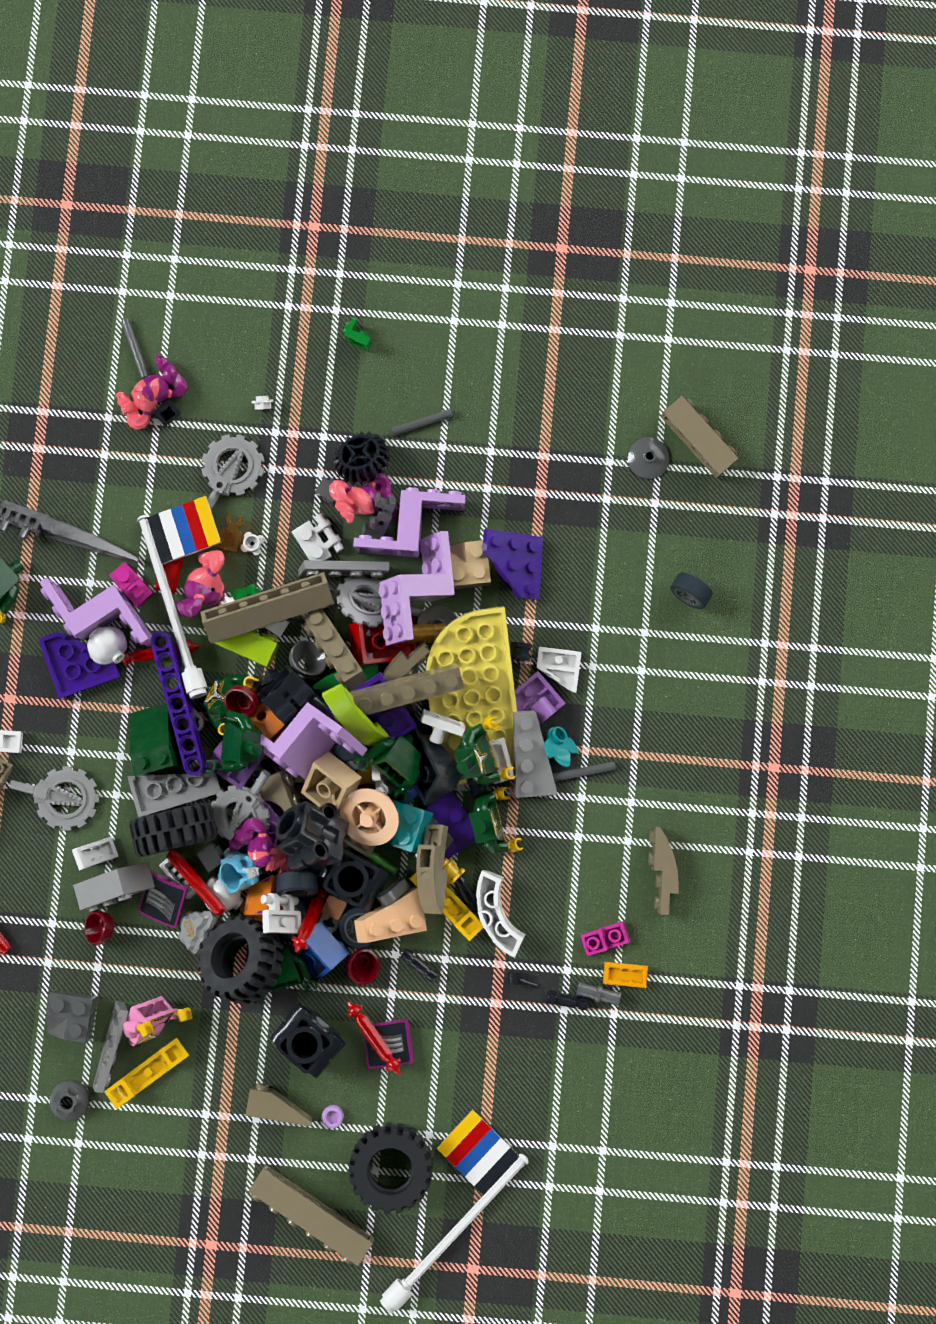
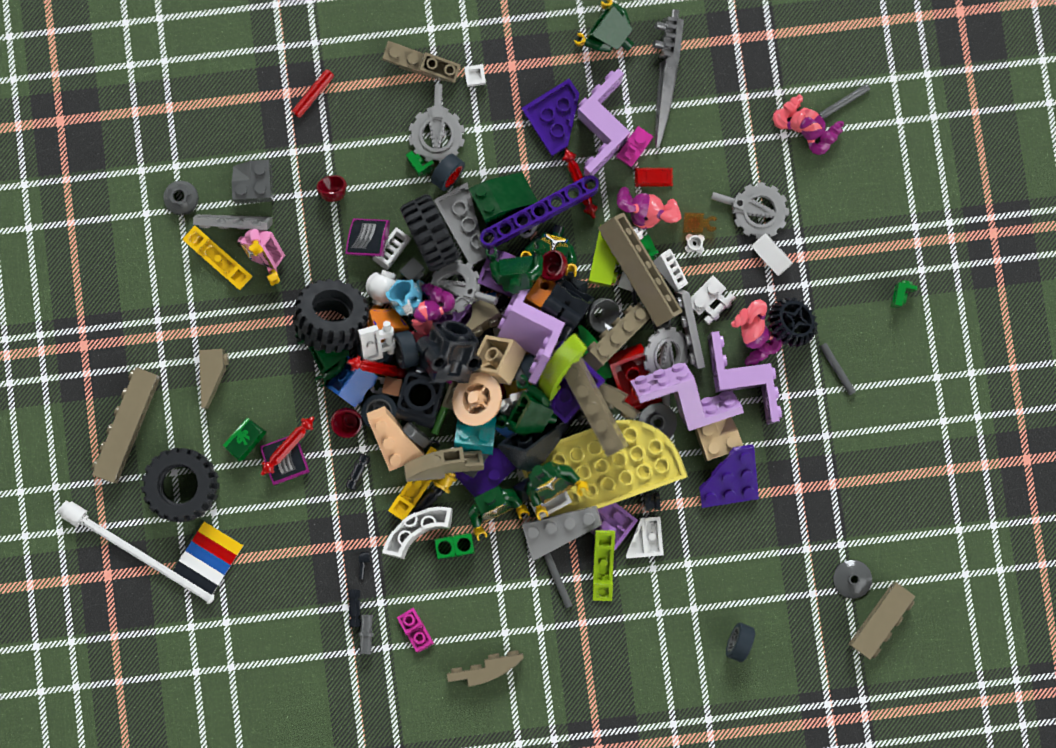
camera: 75 degrees right, 0 degrees up
(92, 827) = (416, 163): none -> green bracket
(95, 853) = (395, 170): white tile -> none
(107, 645) = (576, 138): white plant -> none
(110, 794) = (447, 172): none -> black wheel
(112, 886) = (370, 191): light grey wedge -> none
(166, 412) = (793, 142): black slope -> none
(169, 538) = (683, 171): flag -> none
(196, 882) = (388, 262): red axle -> none
(196, 928) = (349, 271): light grey rock -> none
(262, 402) = (822, 224): white plate -> none
(275, 575) = (670, 269): none -> white slope
(283, 463) = (771, 254): none -> white slope
(306, 1020) = (278, 406): black piece -> none
(323, 491) = (756, 294): dark grey plate -> none
(332, 1116) = (213, 425): lavender tile -> none
(356, 1084) = (244, 439): none -> piece
(378, 525) = (735, 350): dark grey piece -> none
(425, 633) = (649, 413): pearl gold axle -> none
(441, 725) = (570, 444): white tile -> none
(522, 876) = (453, 541): none -> green piece
(559, 746) = (575, 553): teal plate -> none
(578, 718) = (603, 565): none -> lime slope
(625, 974) = (387, 654): light orange plate -> none

